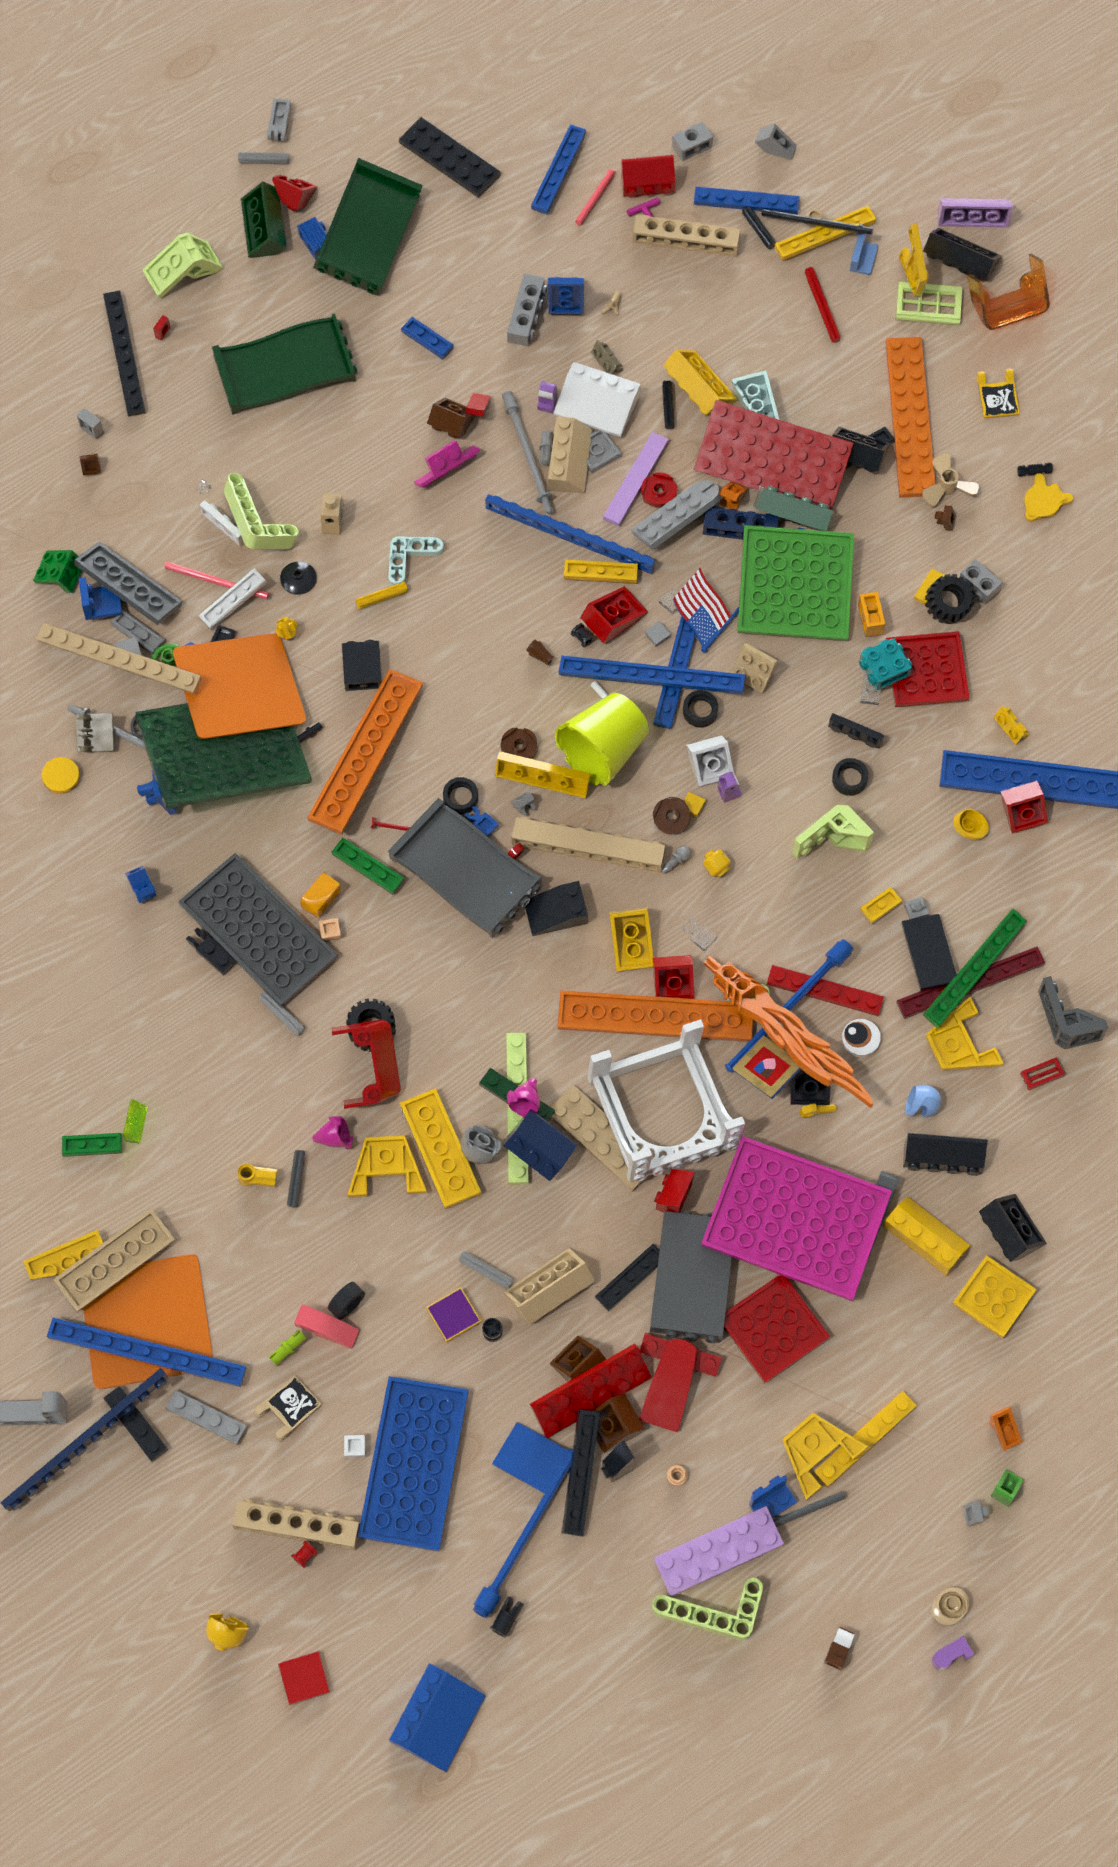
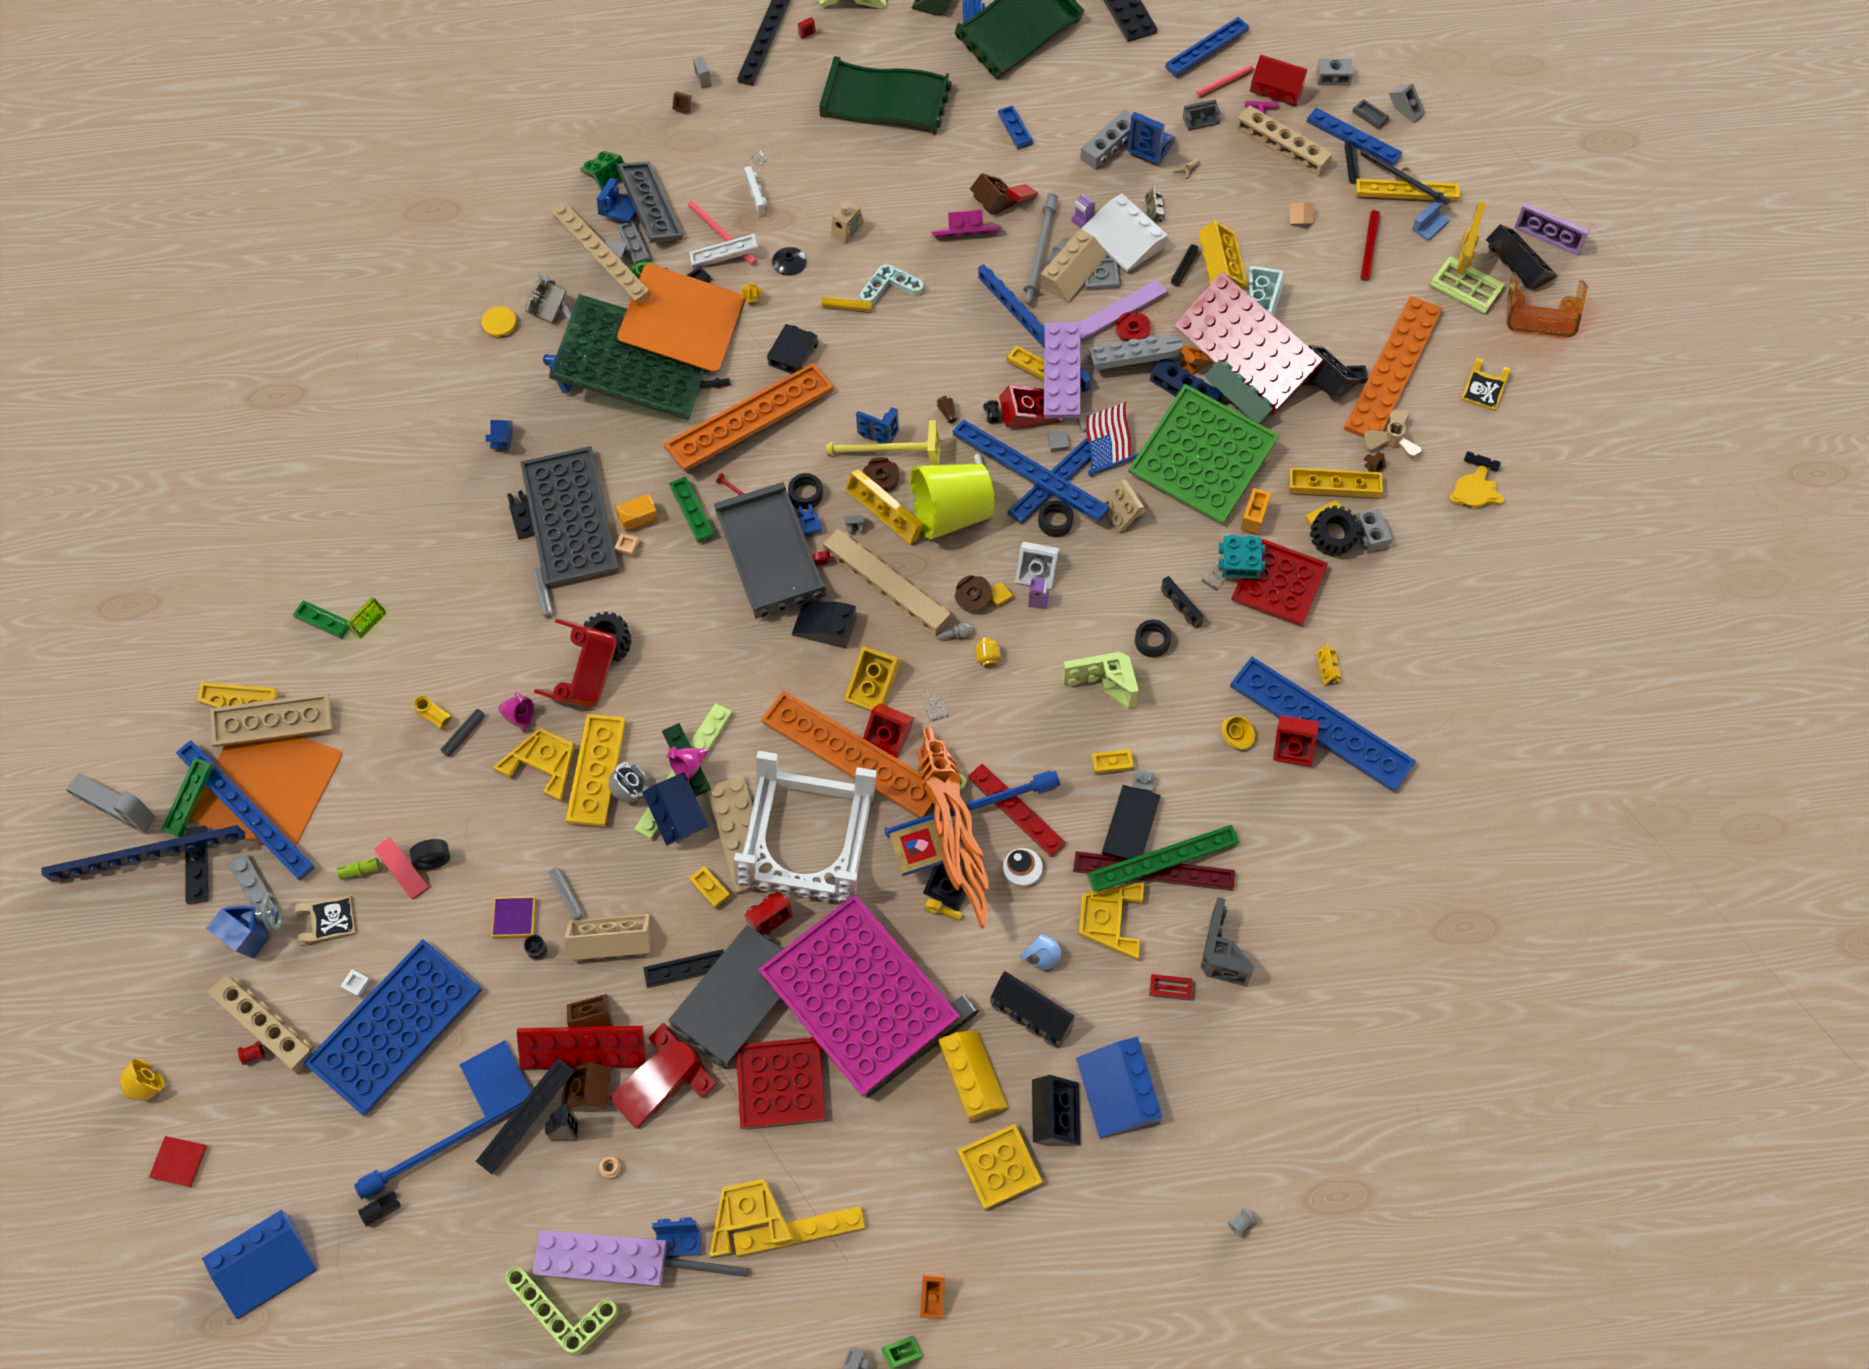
camera: 30 degrees right, 5 degrees down
(88, 1369) = (187, 797): none -> green plate
(225, 1452) = (244, 926): none -> blue piece
(249, 524) = (773, 209): yellowish green beam -> none
(490, 705) = (880, 430): none -> blue bracket
(551, 696) = (931, 445): none -> light yellow tile
(595, 244) = (1201, 115): none -> dark grey hinge
(607, 1197) = (709, 887): none -> yellow plate
(624, 564) = (1062, 370): none -> lavender plate
(744, 302) = (1302, 213): none -> light nougat panel
(748, 169) = (1370, 114): none -> dark grey tile
(922, 552) = (1335, 482): none -> yellow piece
(1051, 1179) = (1119, 1088): none -> blue slope

